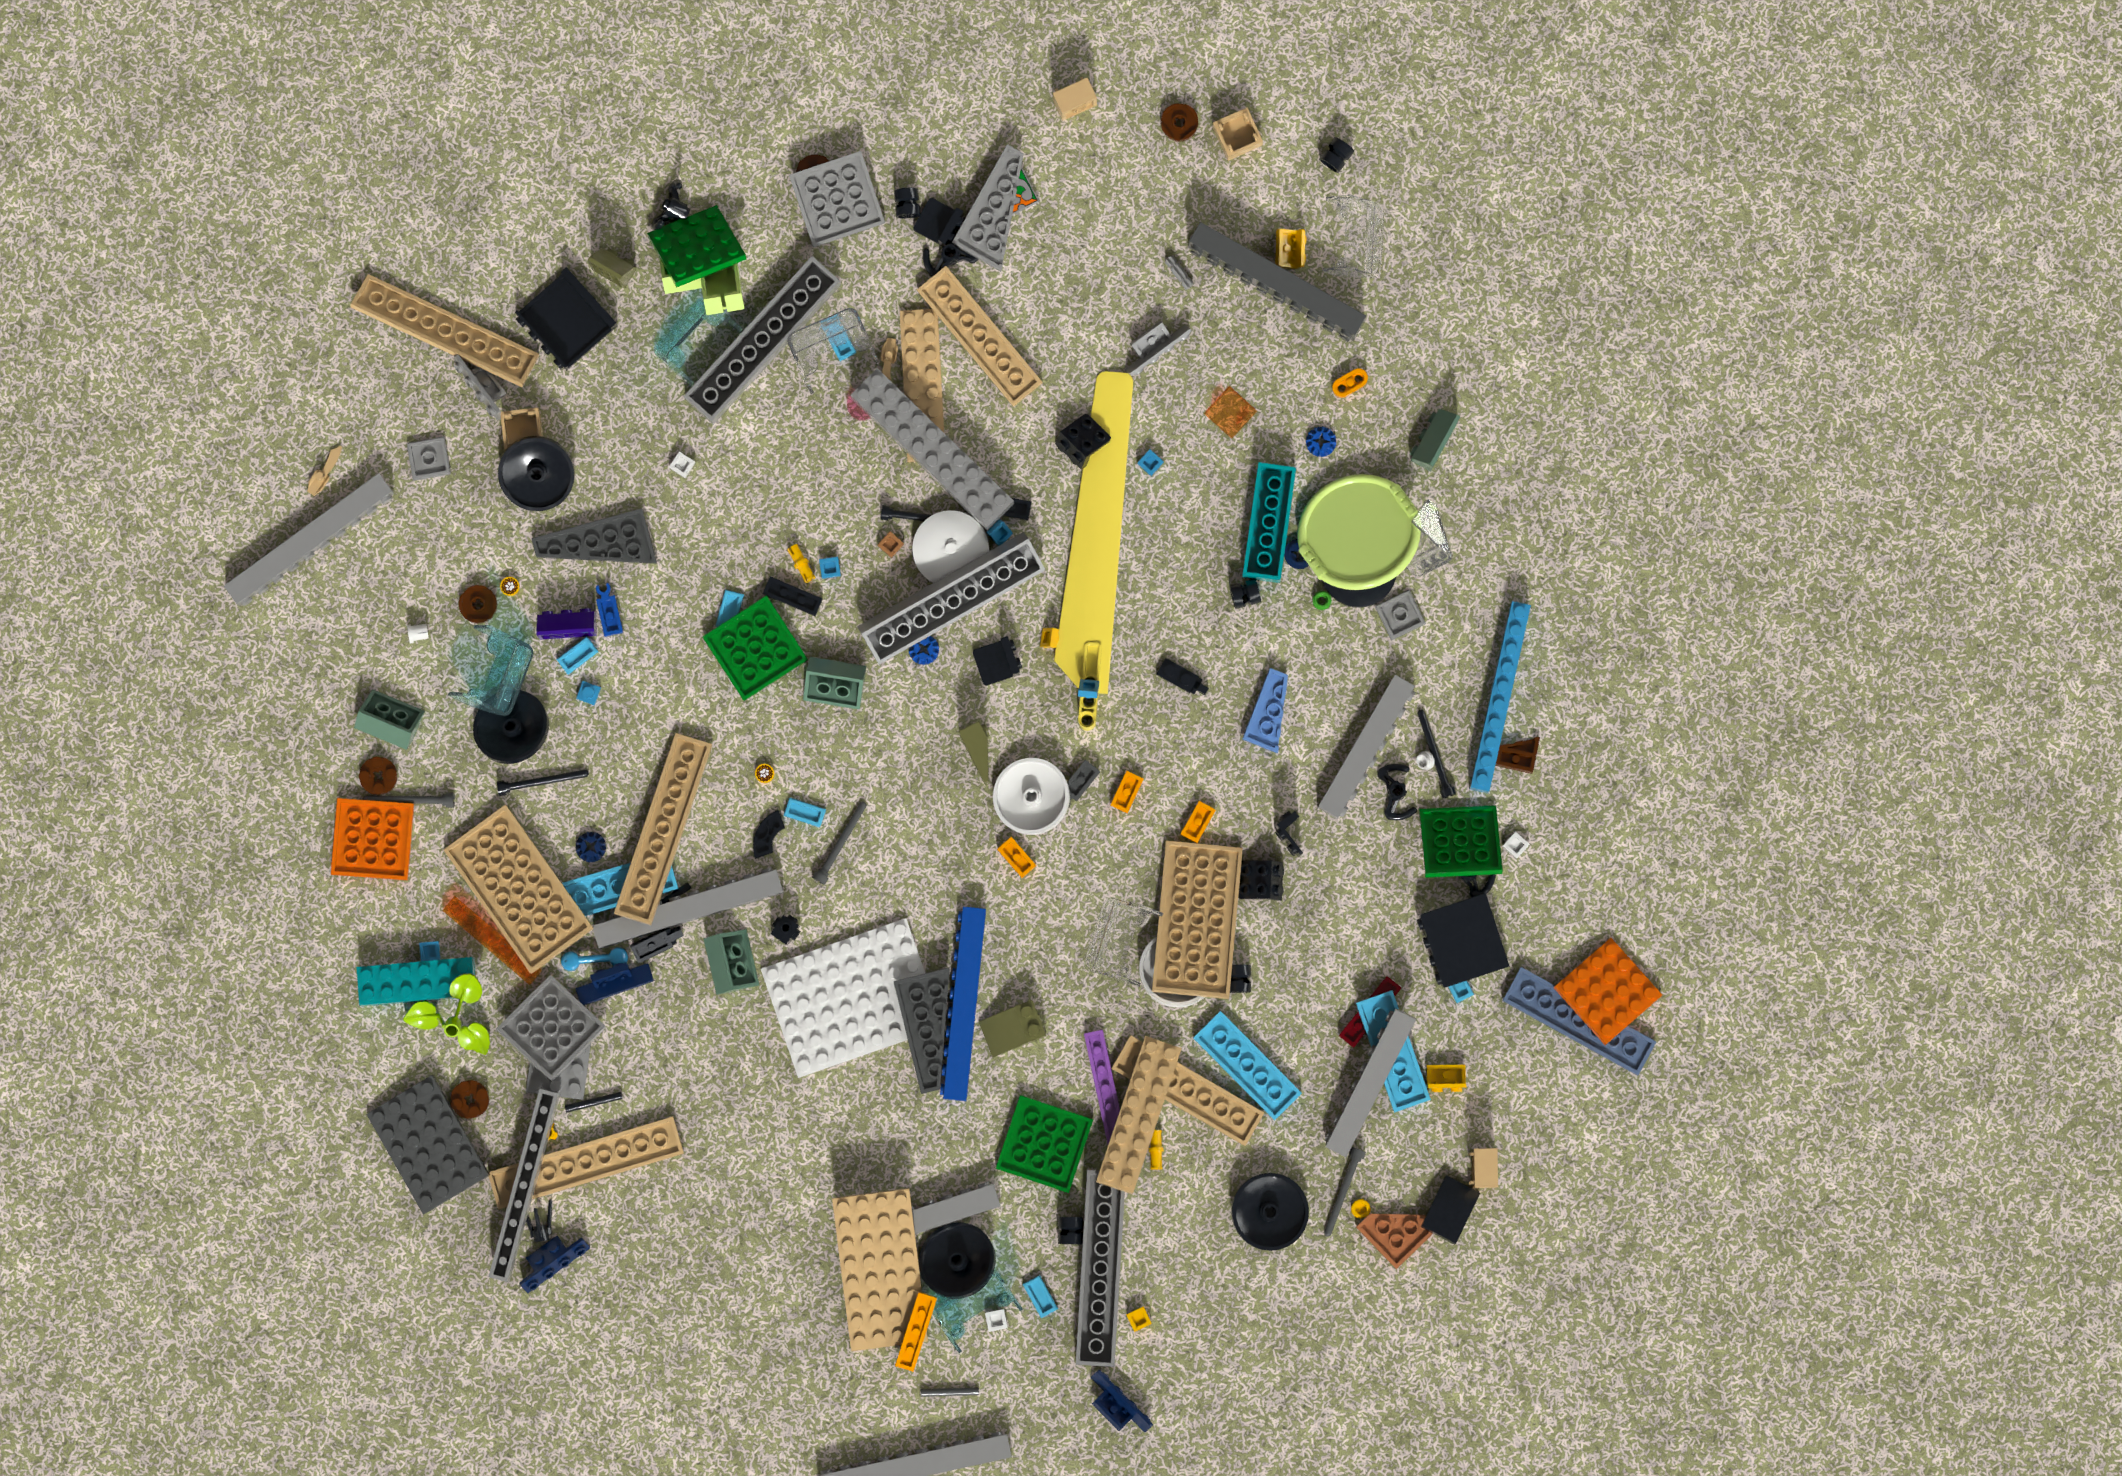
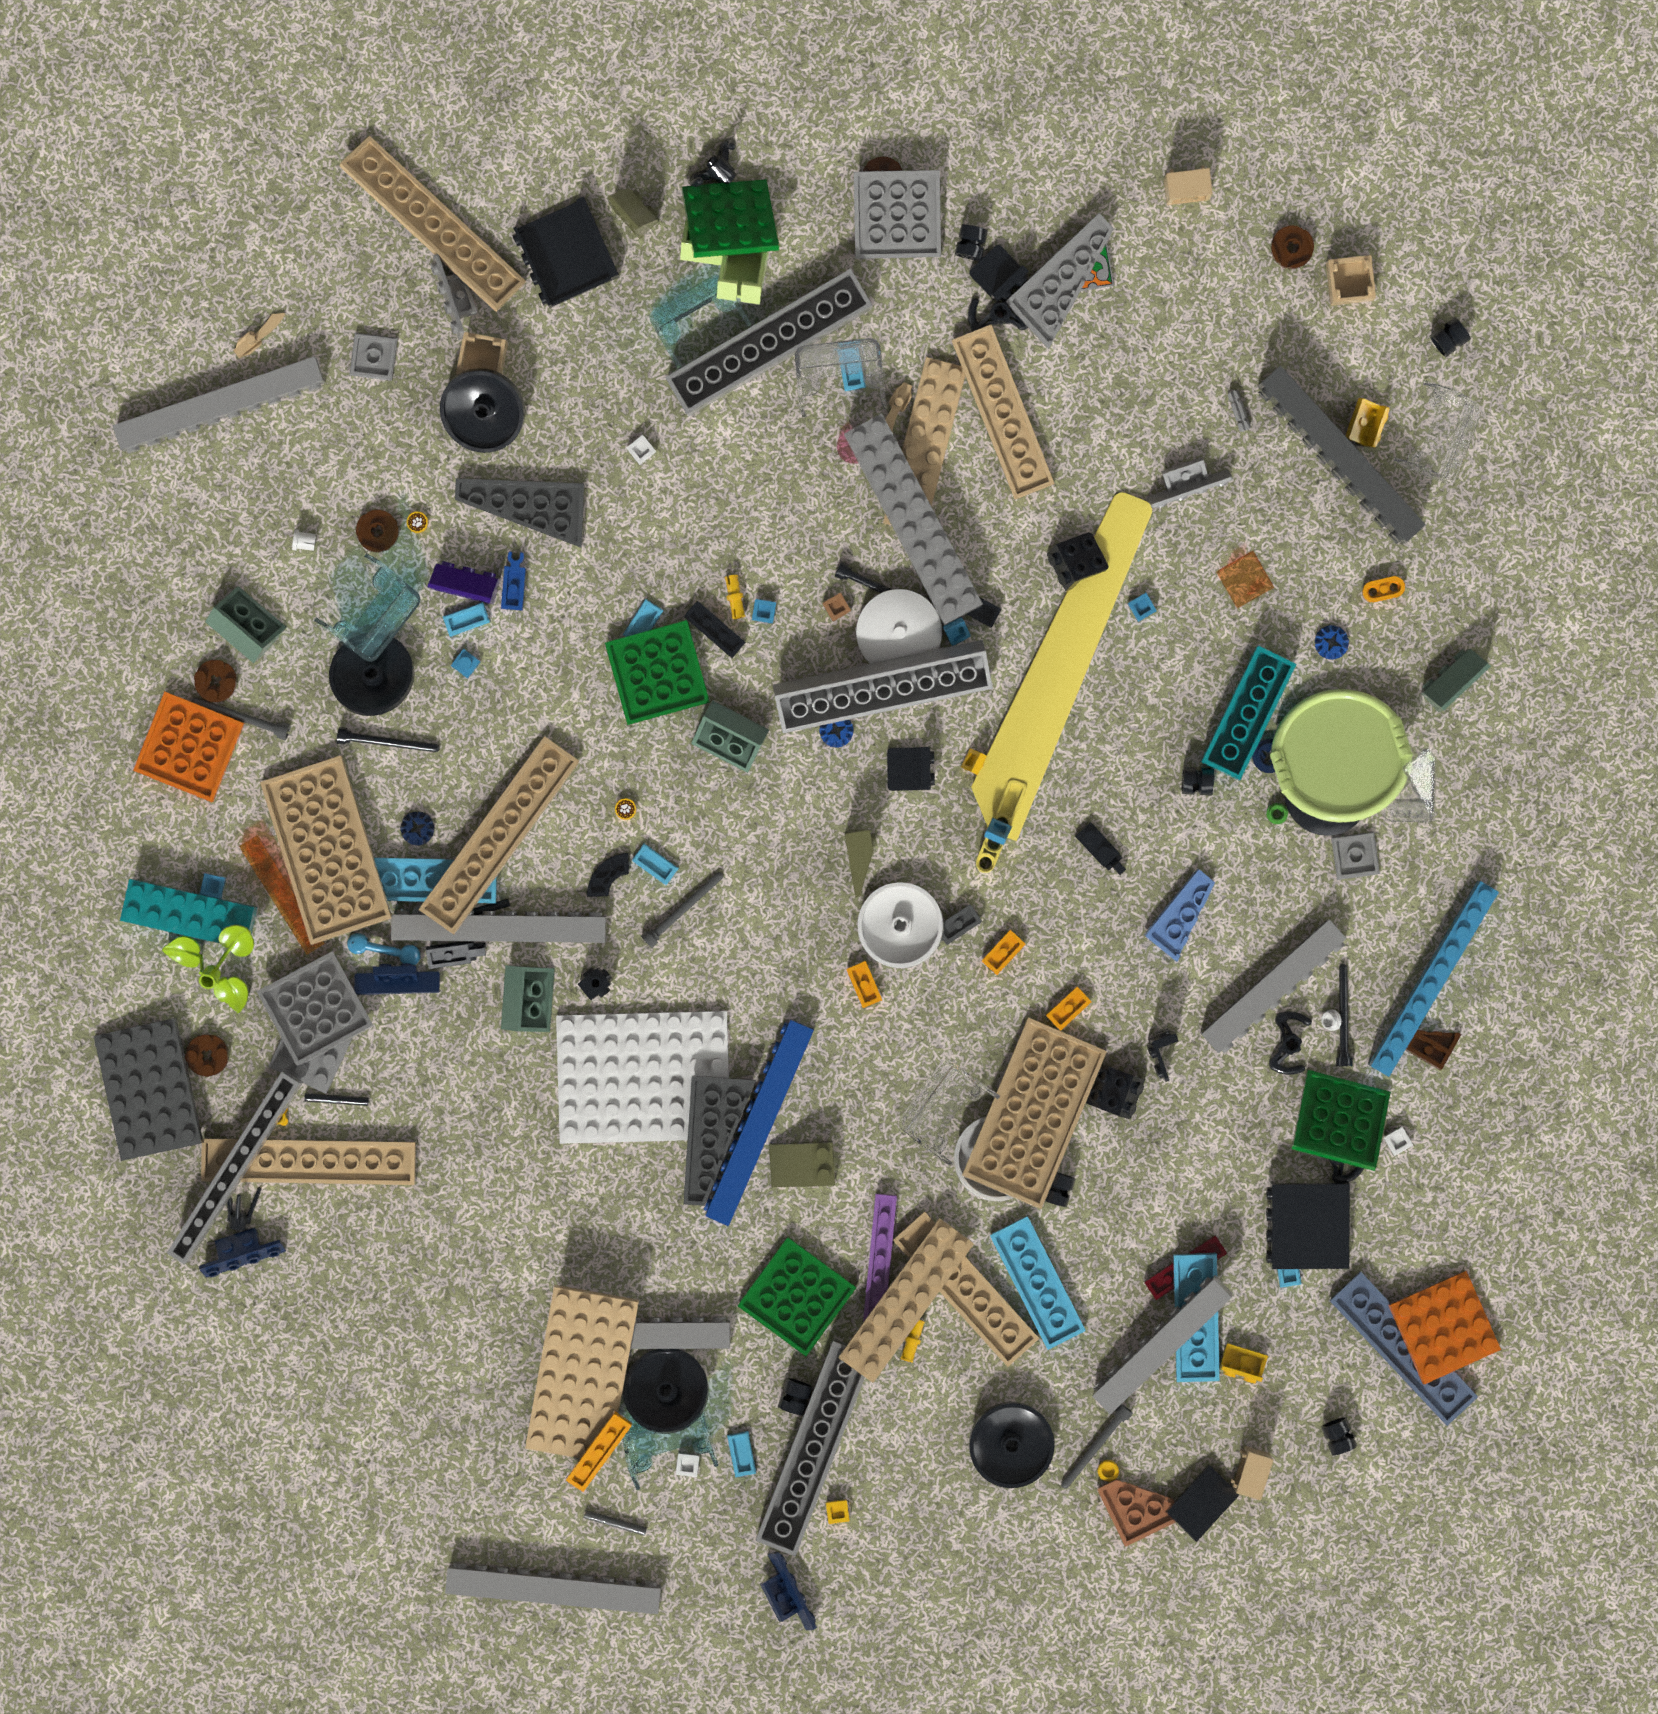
camera: 20 degrees right, 5 degrees up
(1548, 1114) = (1339, 1436): none -> black wheel

